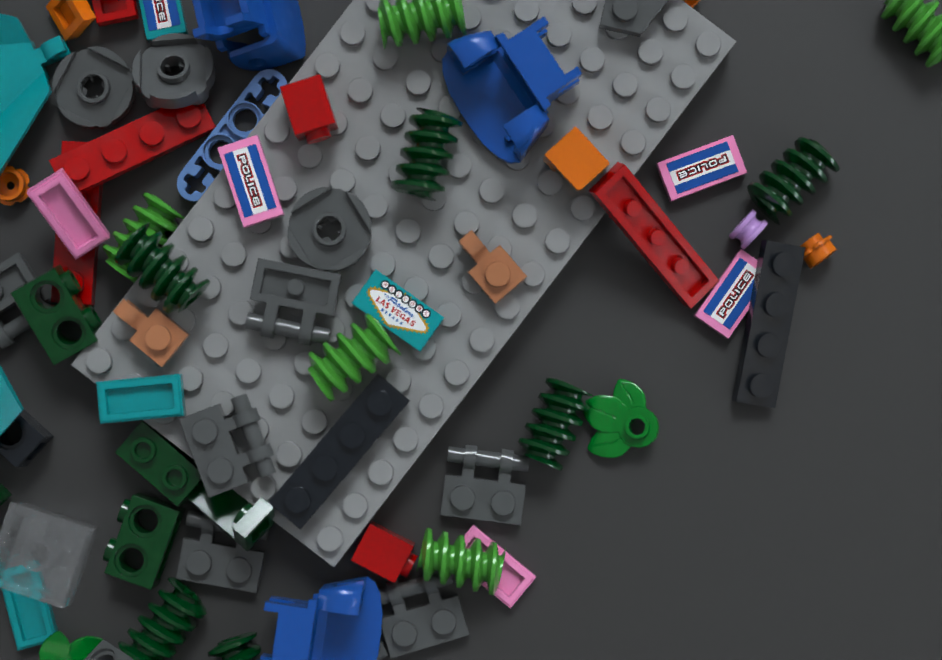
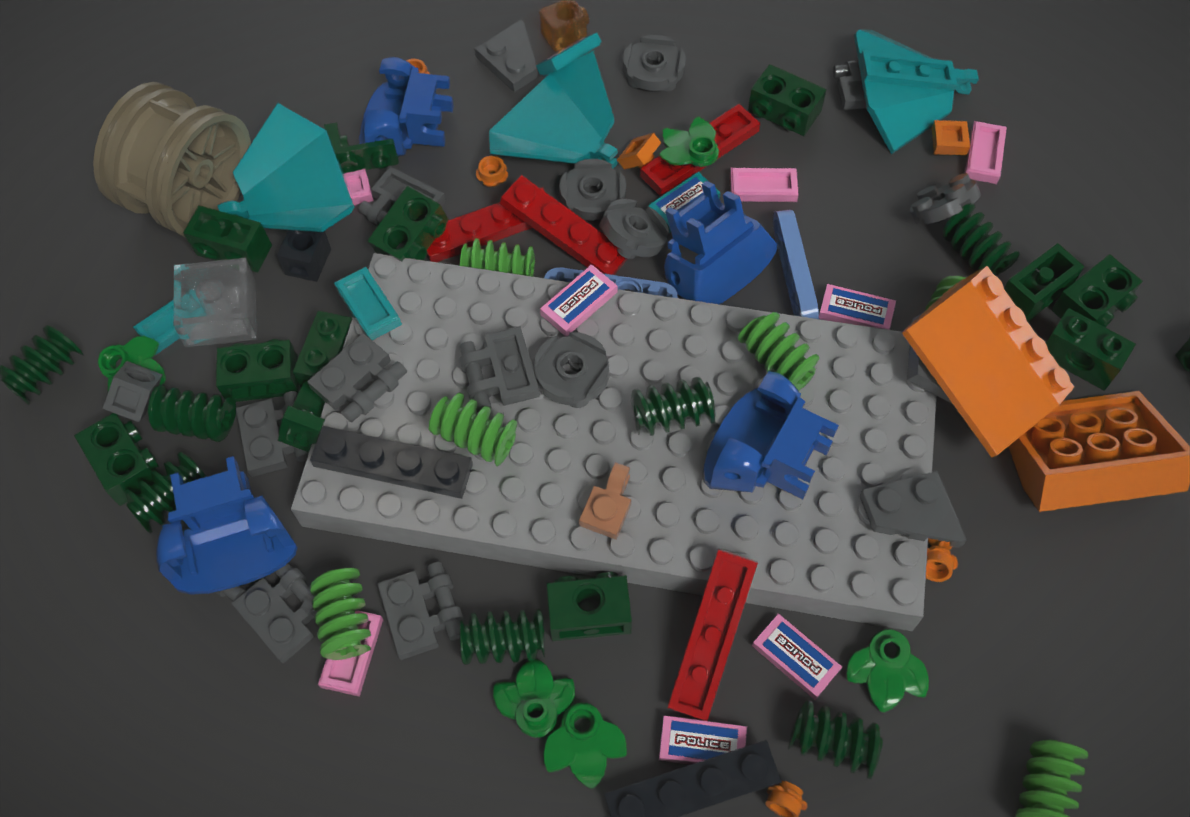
camera: 60 degrees right, 25 degrees down
(68, 213) = (488, 202): bright pink tile -> none
(155, 334) = (424, 290): nougat plate -> none
(160, 270) = (475, 265): dark green piece -> none
(309, 109) = (659, 309): red brick -> none
(385, 552) = (323, 548): red brick -> none
(398, 310) = (532, 451): tile -> none
(576, 159) = (738, 520): orange panel -> none
(582, 312) = (572, 622): none -> dark green brick
(688, 399) = (586, 750): none -> green plate
(748, 229) = (767, 723): lavender bush -> none
(760, 99) = (886, 676): none -> green plate

